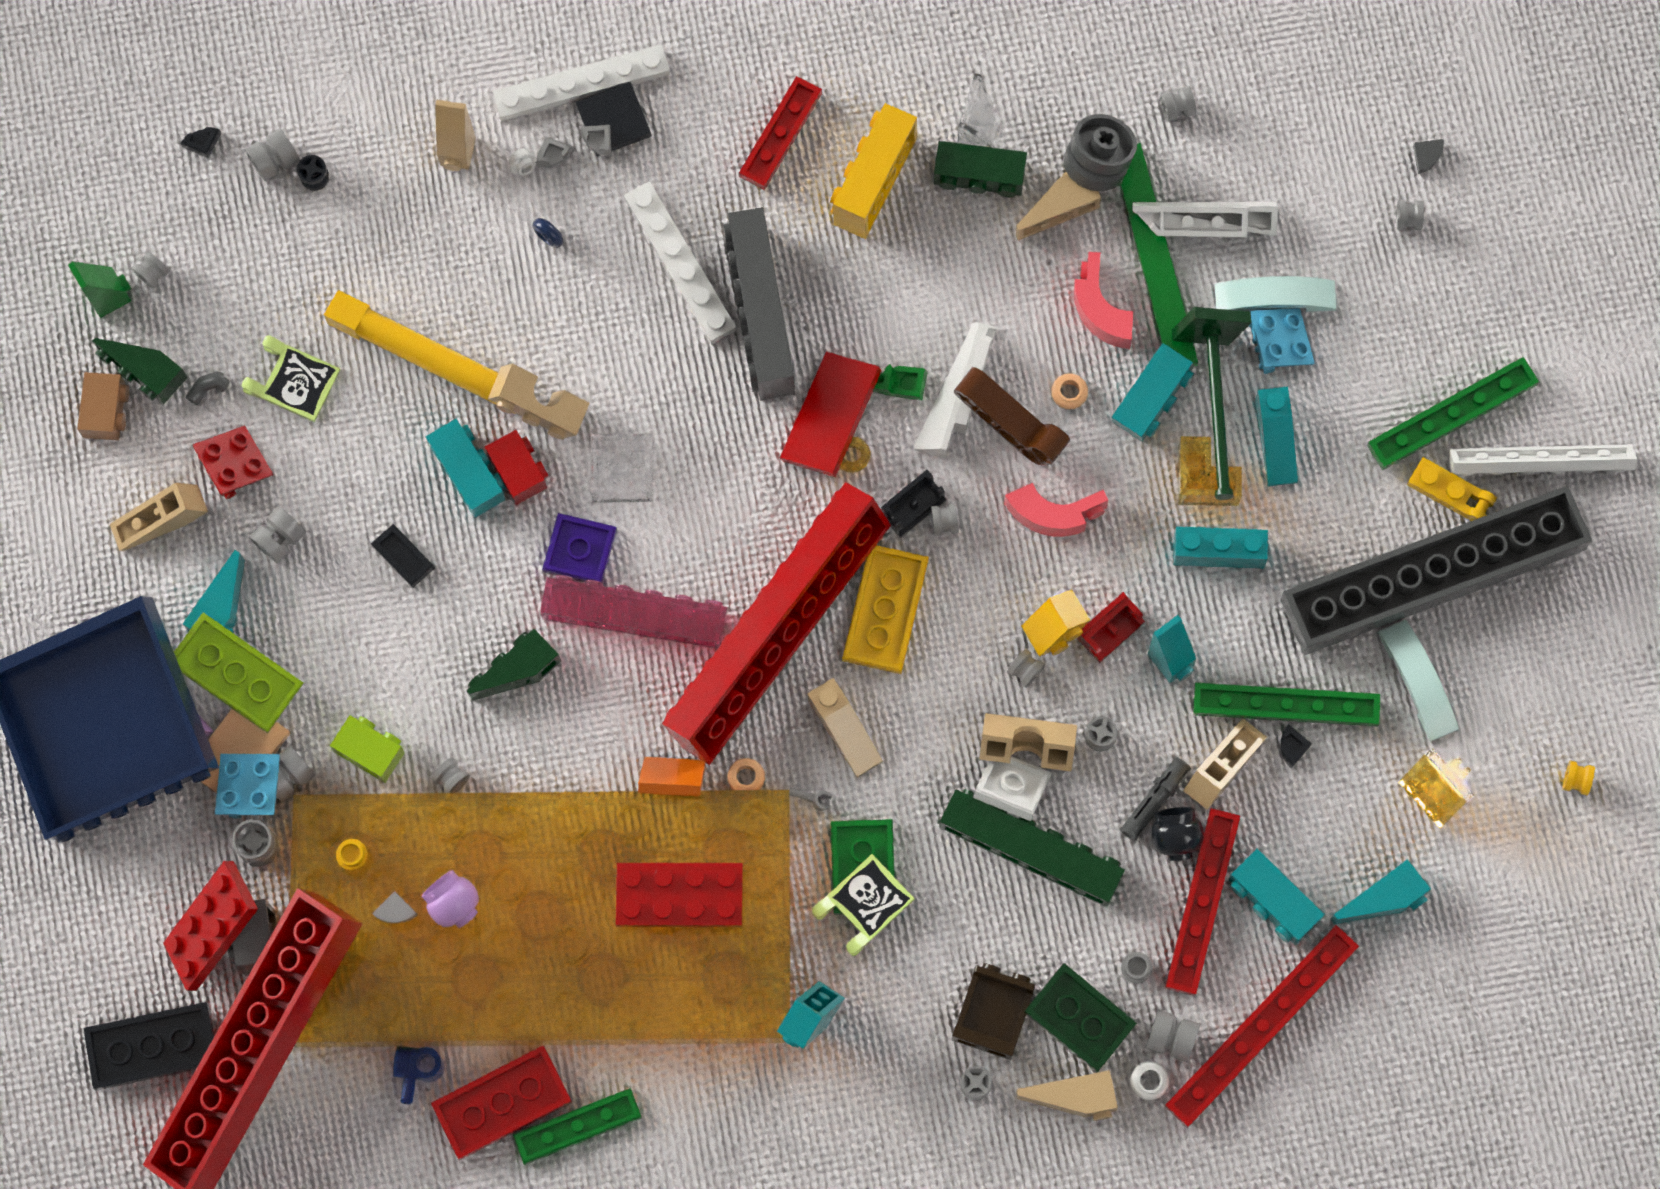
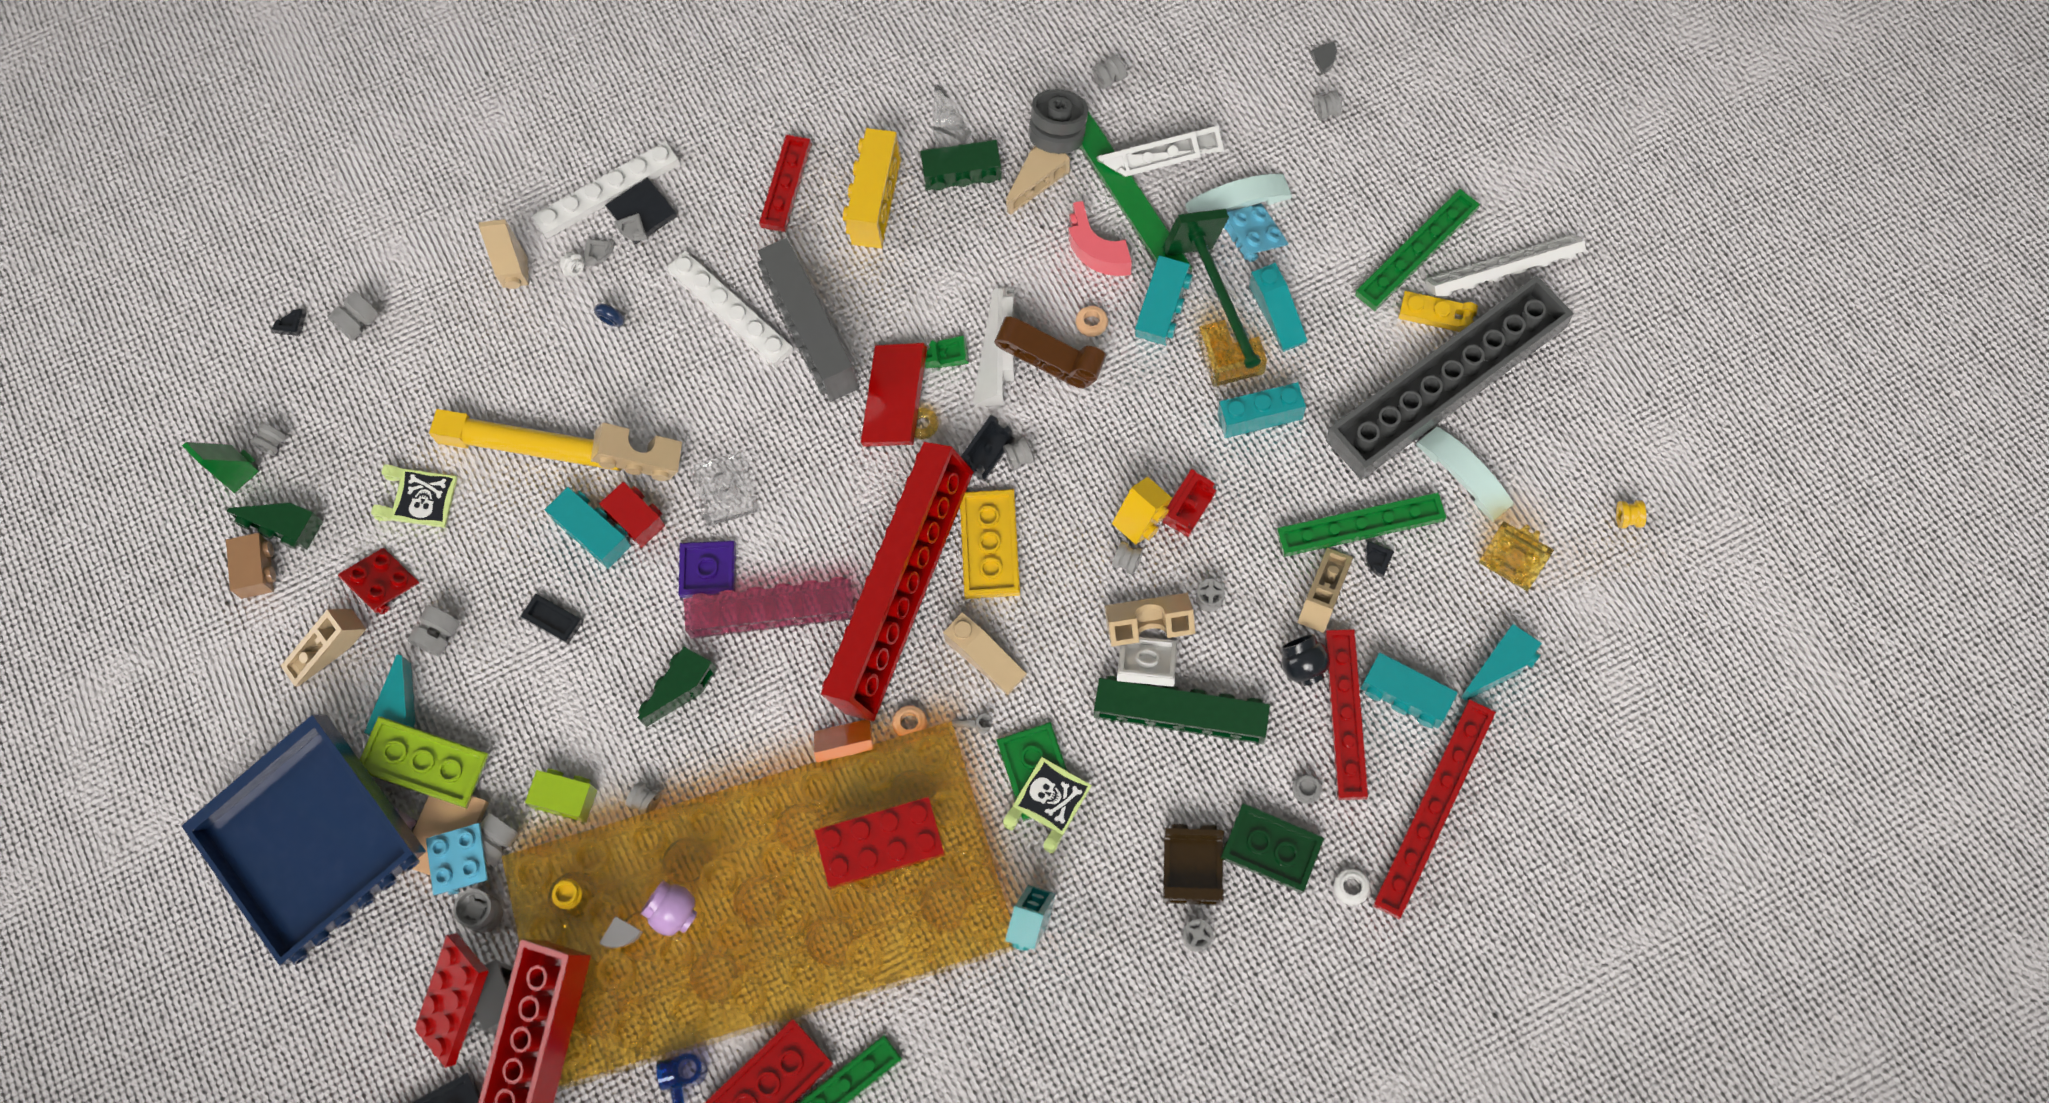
camera: 15 degrees left, 5 degrees down
(205, 383) = (338, 522): dark grey arm -> none
(310, 166) = (388, 316): black wheel -> none
(1050, 518) = (1109, 427): coral arch -> none
(1079, 1095) = (1294, 919): tan slope -> none
(1162, 789) = (1278, 627): dark grey pin -> none
(1172, 651) = (1250, 504): teal slope -> none
(1173, 1036) = (1356, 839): light grey wheel -> none

